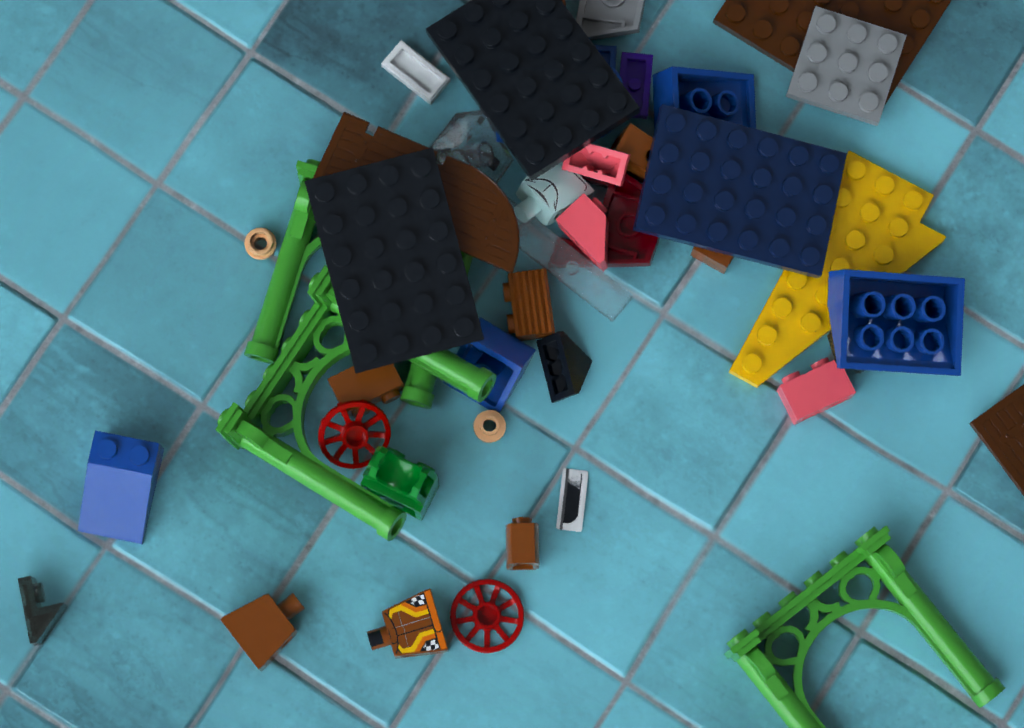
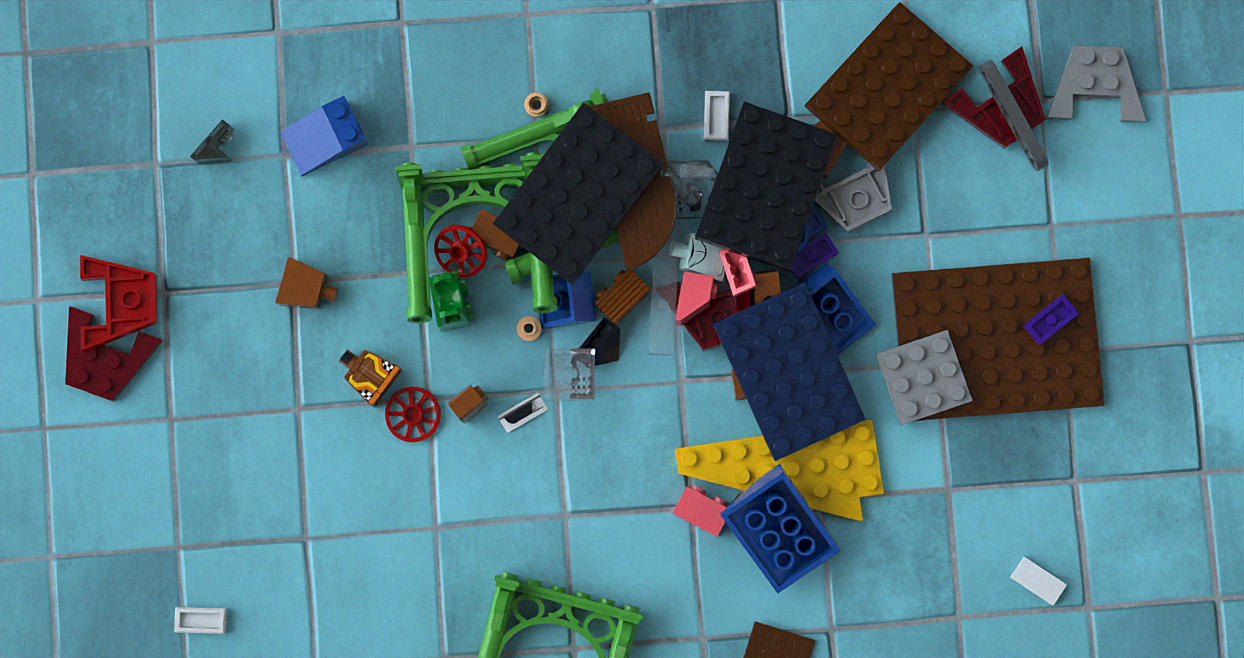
camera: 55 degrees right, 5 degrees up
(571, 418) = (569, 374): none -> clear slope

